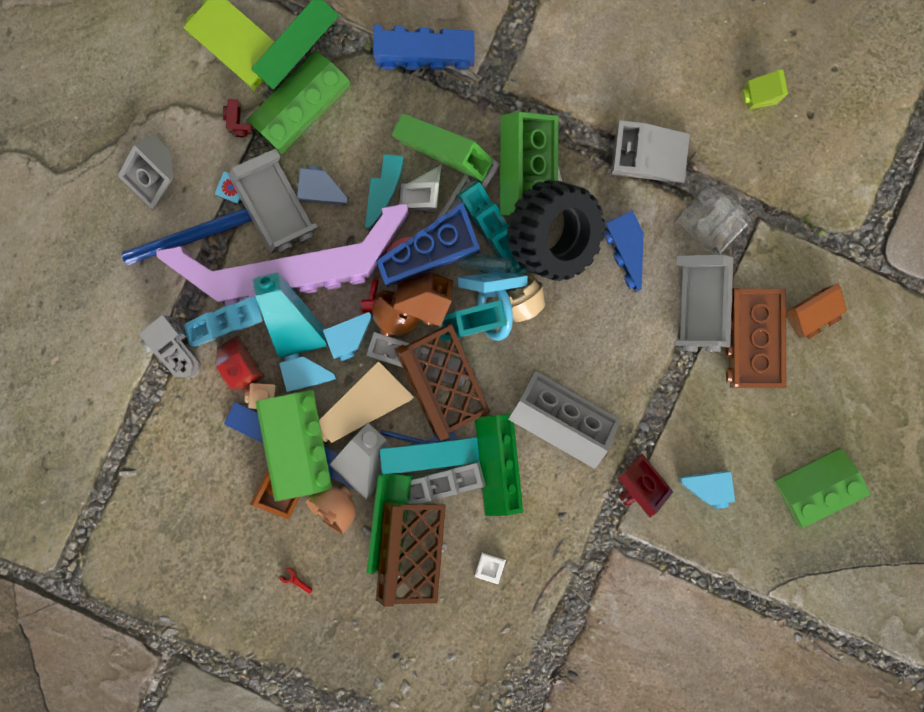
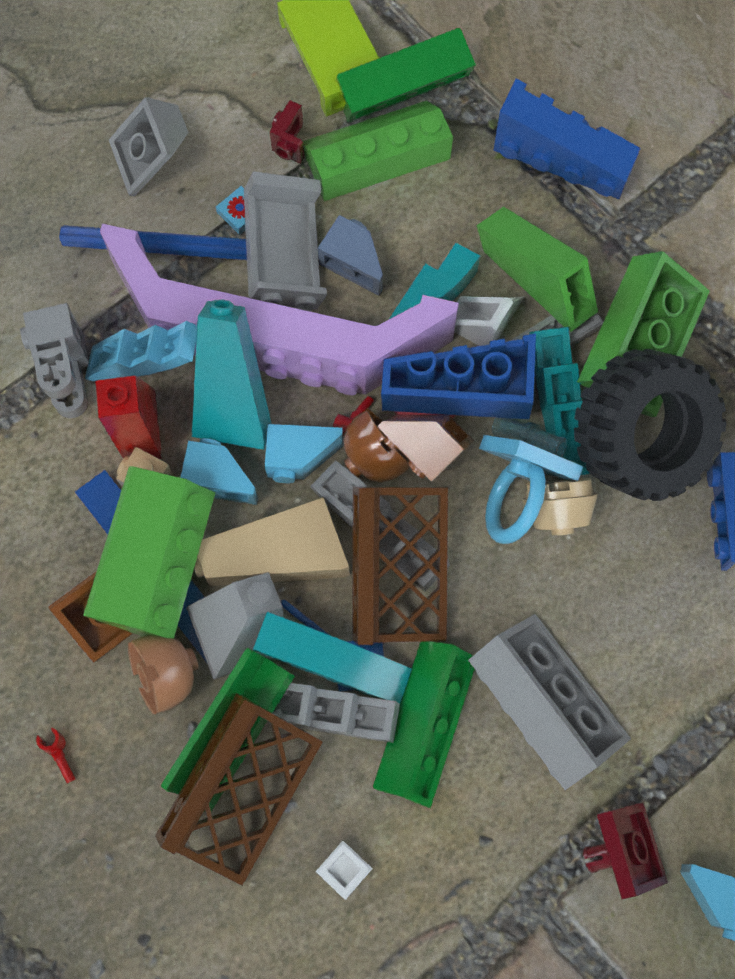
camera: 30 degrees right, 15 degrees down
(475, 319) = (483, 498): teal slope -> none

